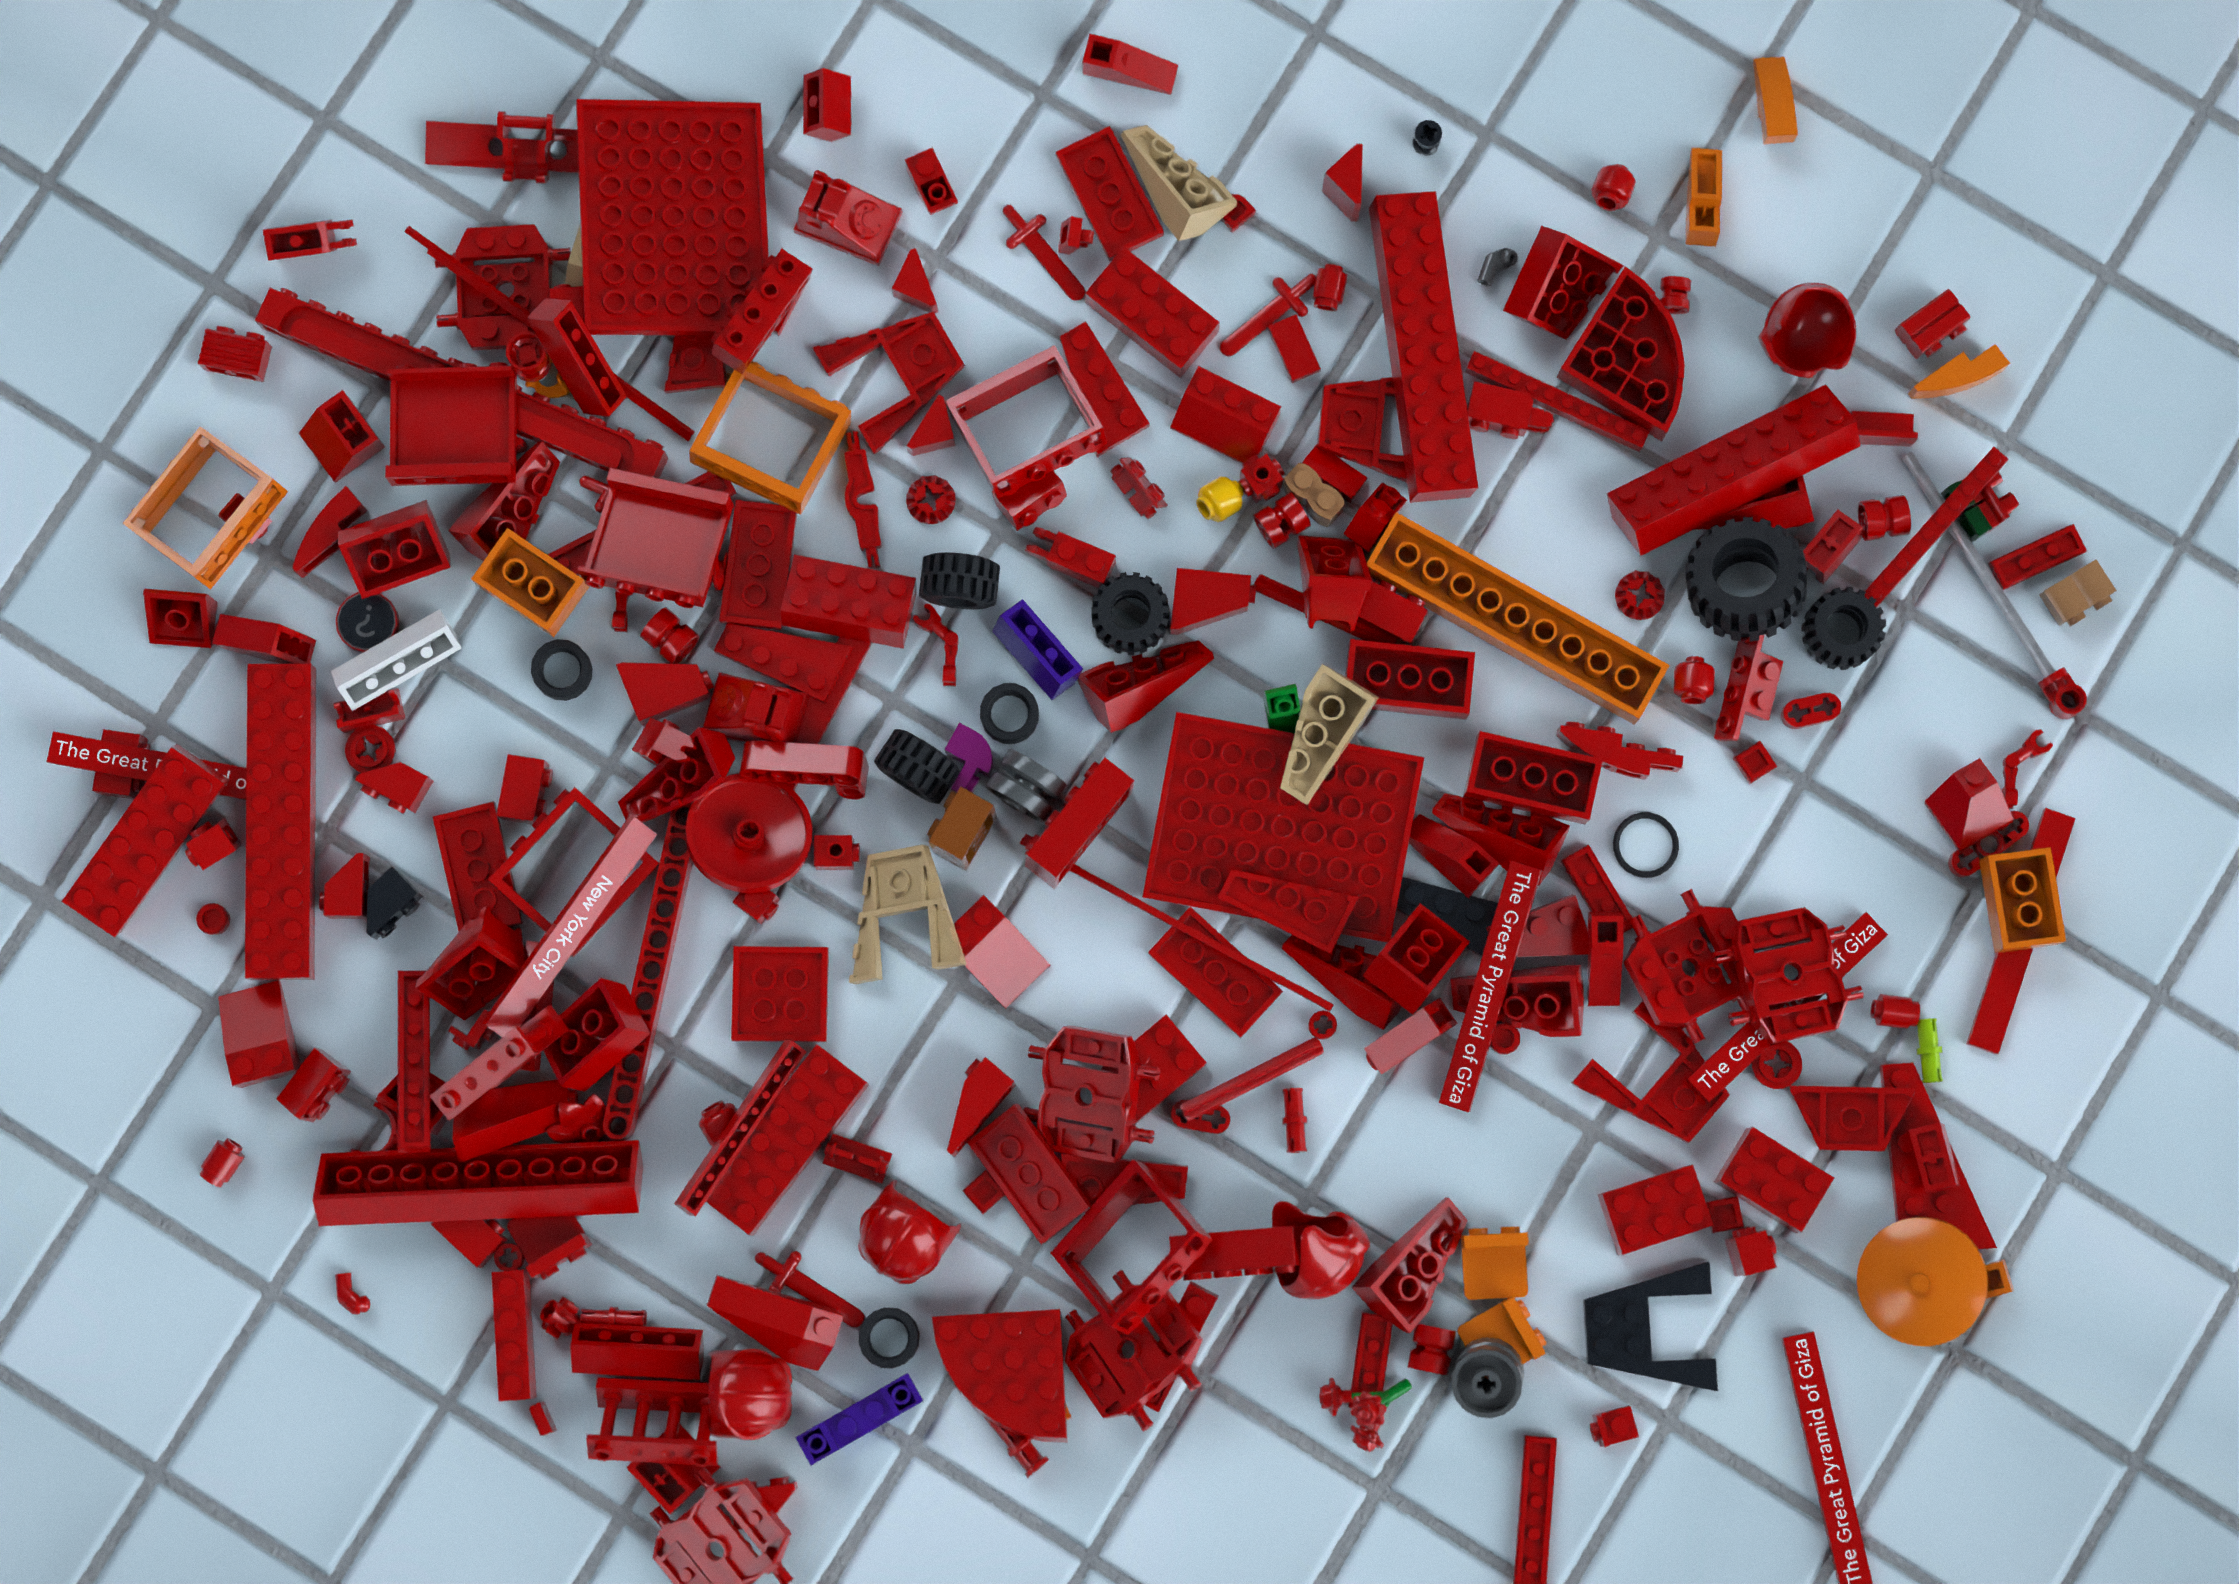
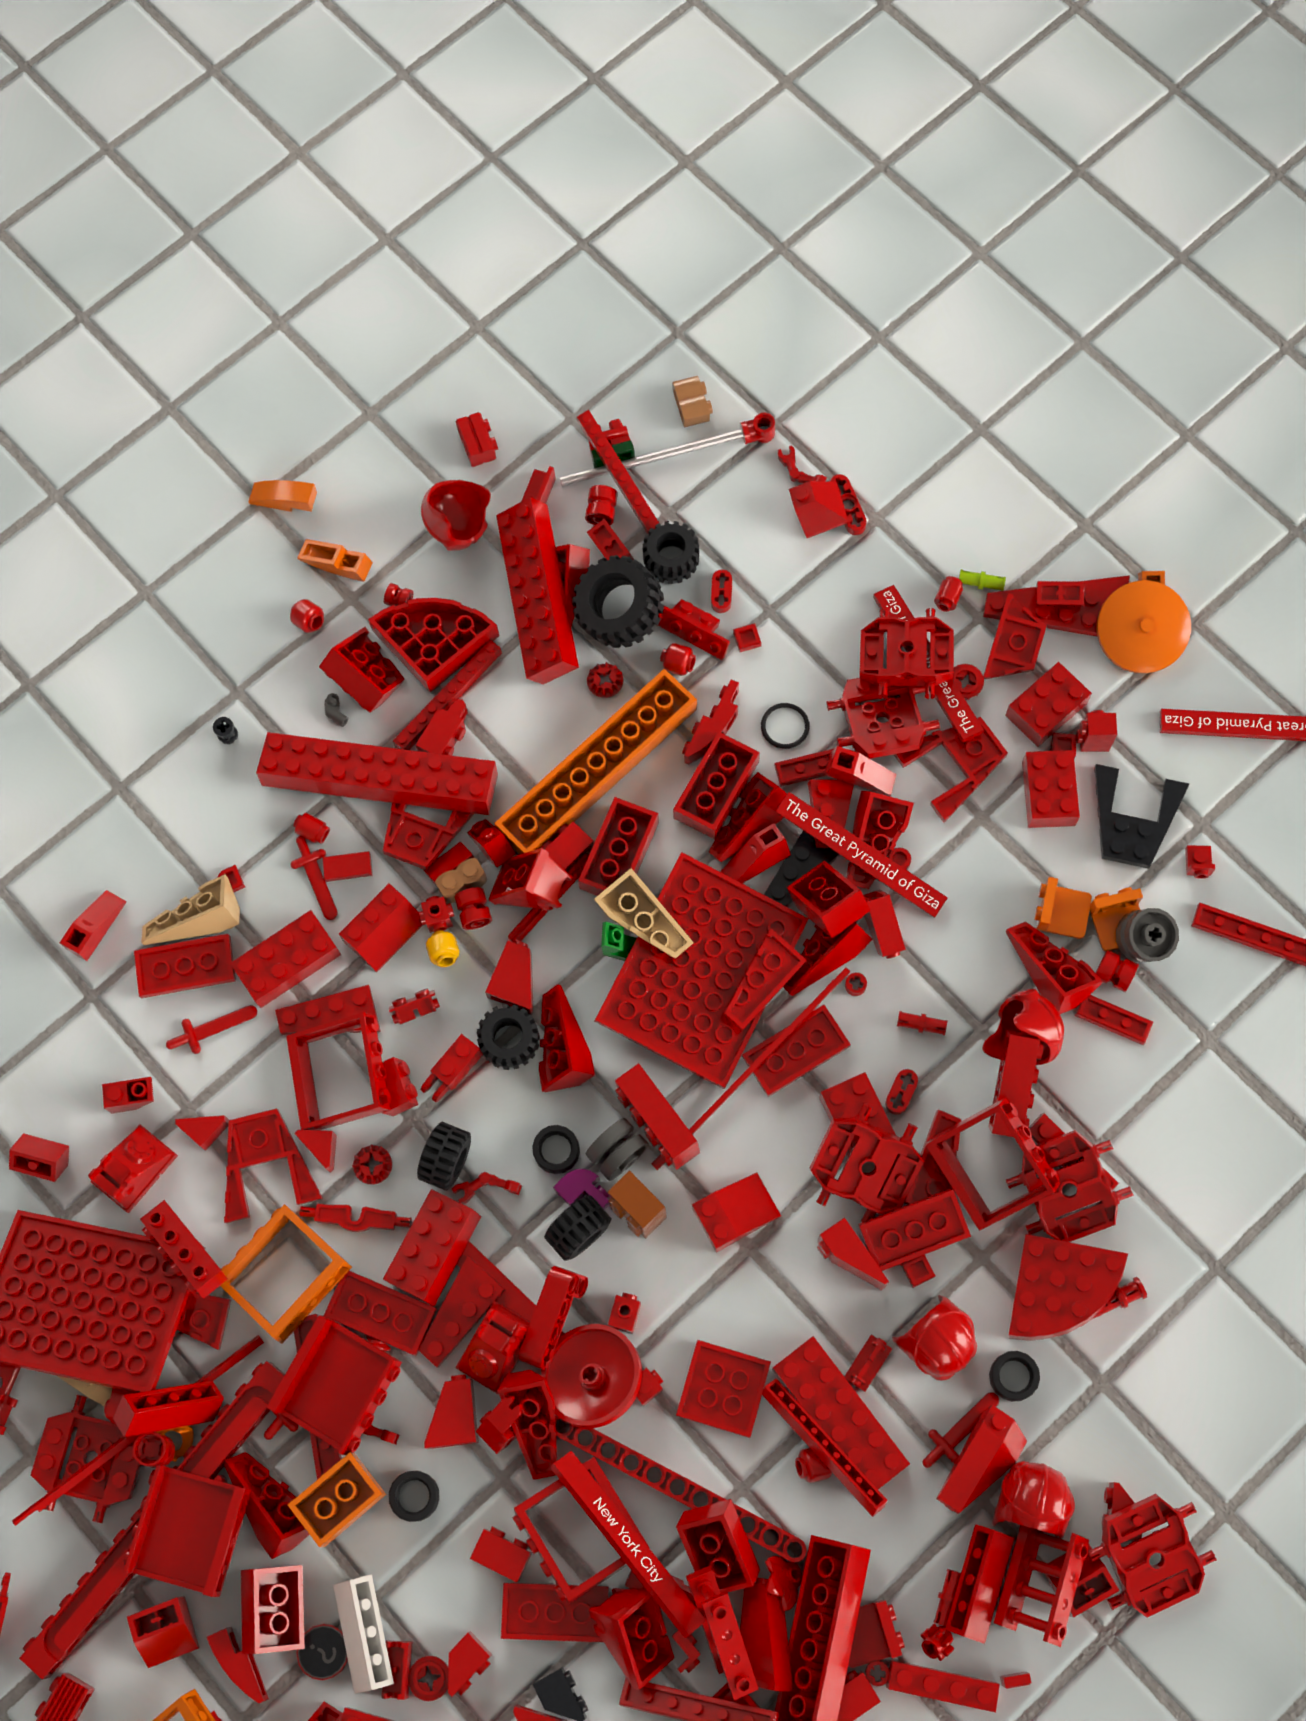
camera: 70 degrees left, 10 degrees down
(668, 635) = (414, 1399): red wheel -> none
(859, 1419) = (1072, 1417): dark purple slope -> none
(900, 884) = (664, 1270): tan wing -> none
(1037, 649) = (514, 1113): dark purple brick -> none
(1073, 236) = (207, 1000): red tile -> none
(1251, 1079) = (884, 1045): red axle -> none
(1344, 182) = (241, 792): red slope -> none
(1367, 1409) = (1154, 1024): red plant -> none
(1961, 374) = (516, 431): orange slope -> none
(2010, 966) = (914, 501): red tile -> none
(2022, 900) = (895, 489): orange brick -> none
(2037, 557) = (658, 420): red tile -> none

